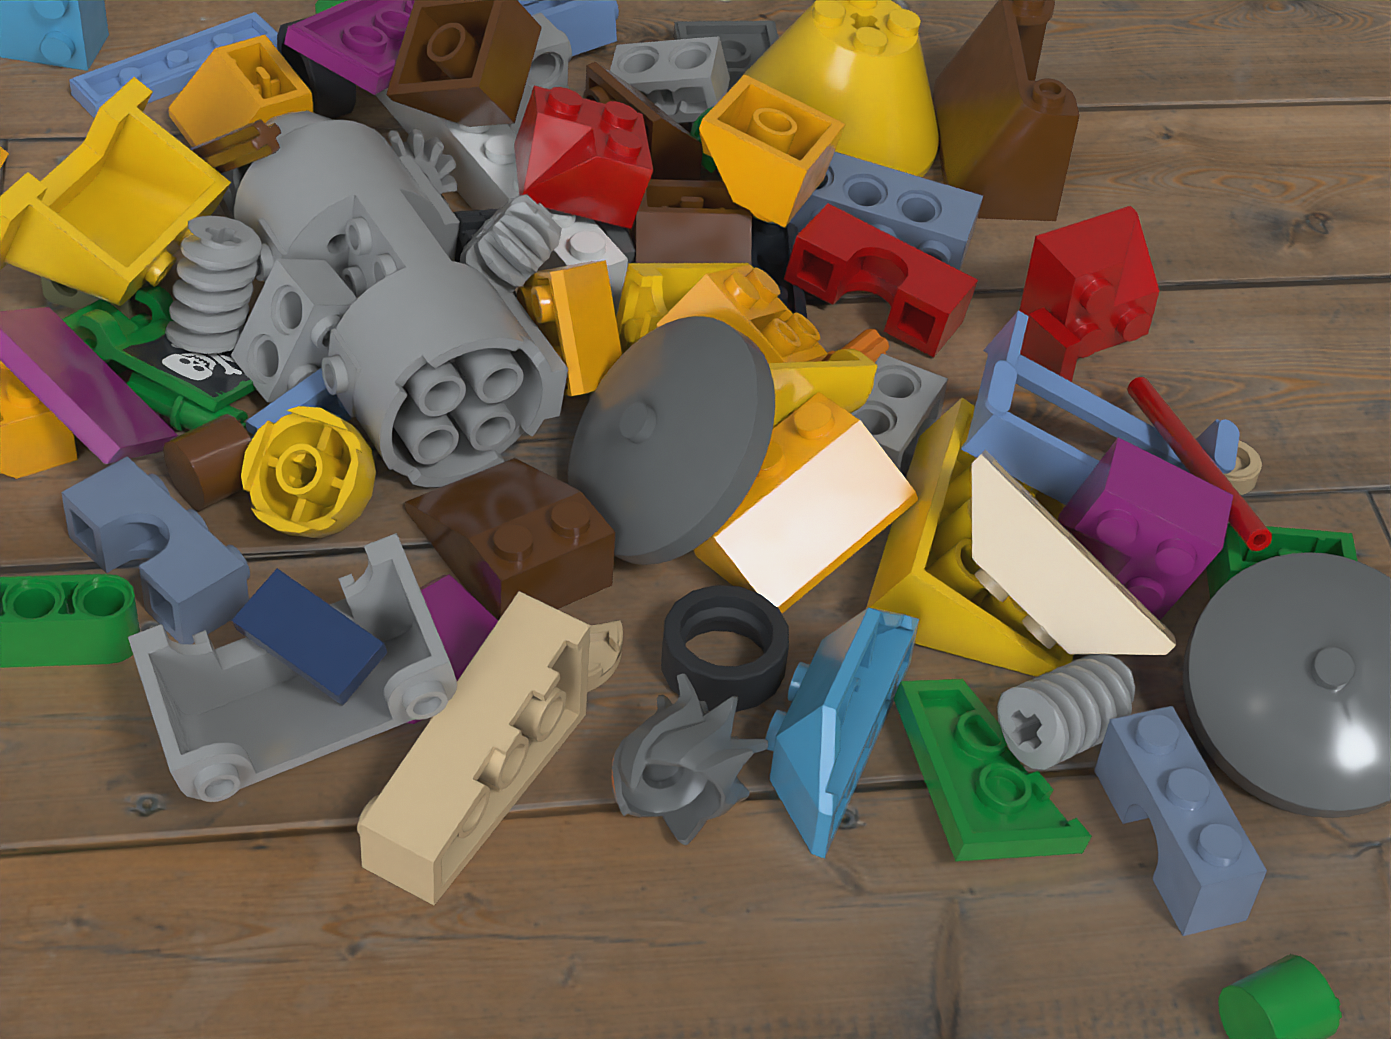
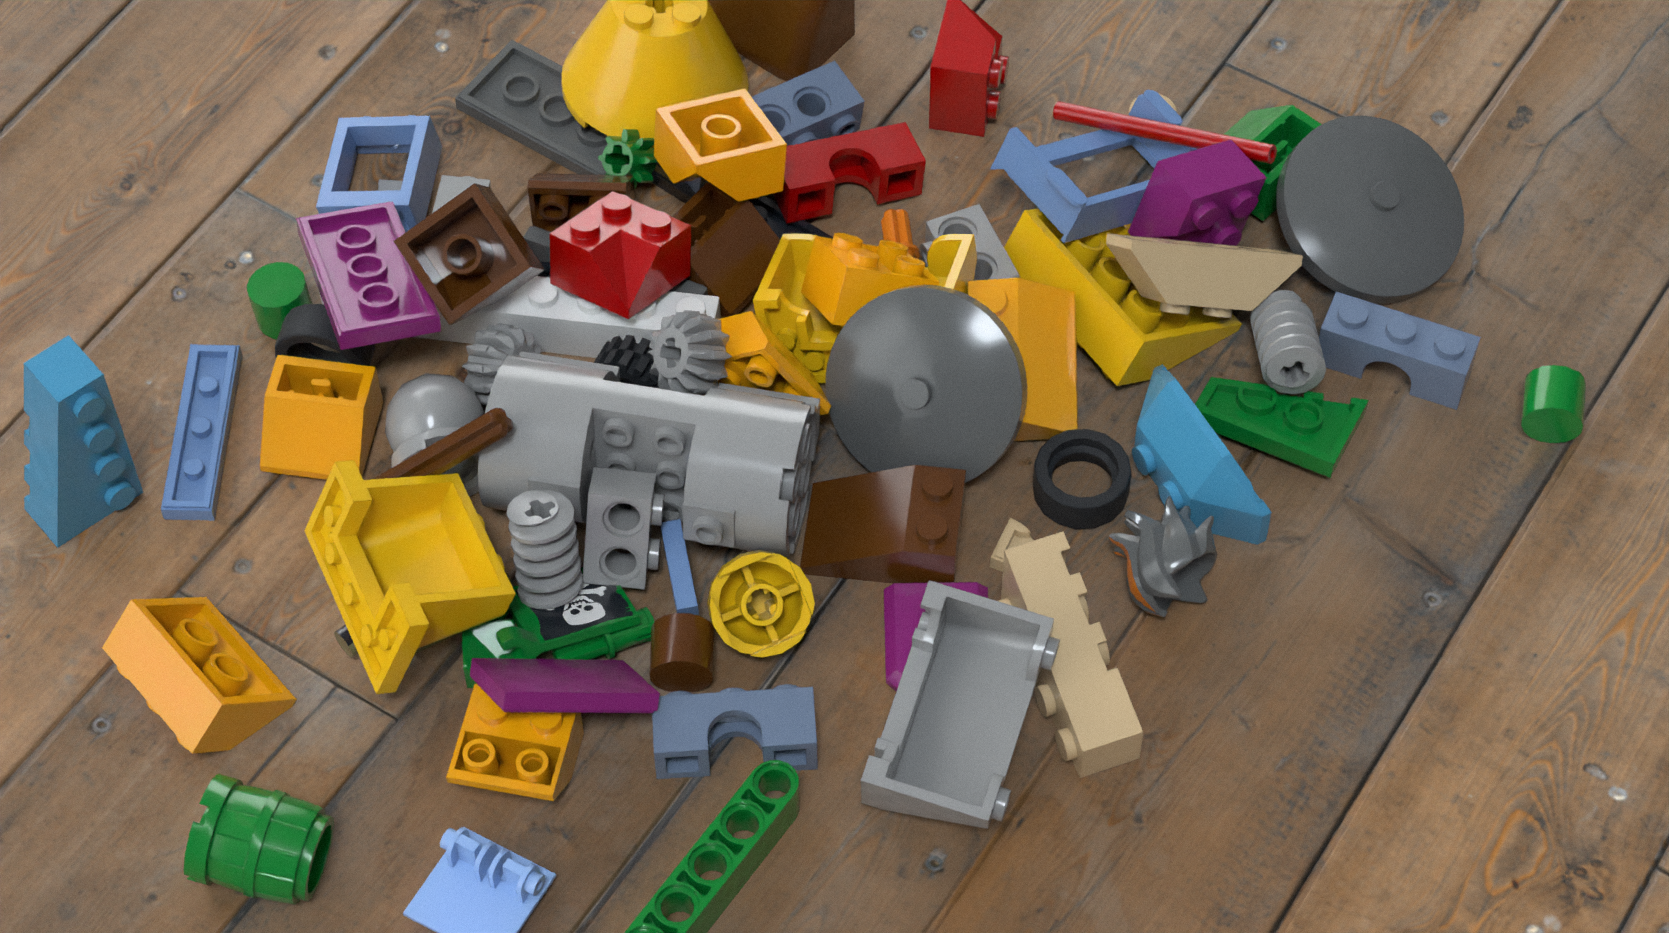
camera: 45 degrees left, 10 degrees up
(309, 636) = (928, 684): dark blue tile -> none
(676, 75) = (542, 151): light grey brick -> none
(1050, 344) = (983, 129): red tile -> none

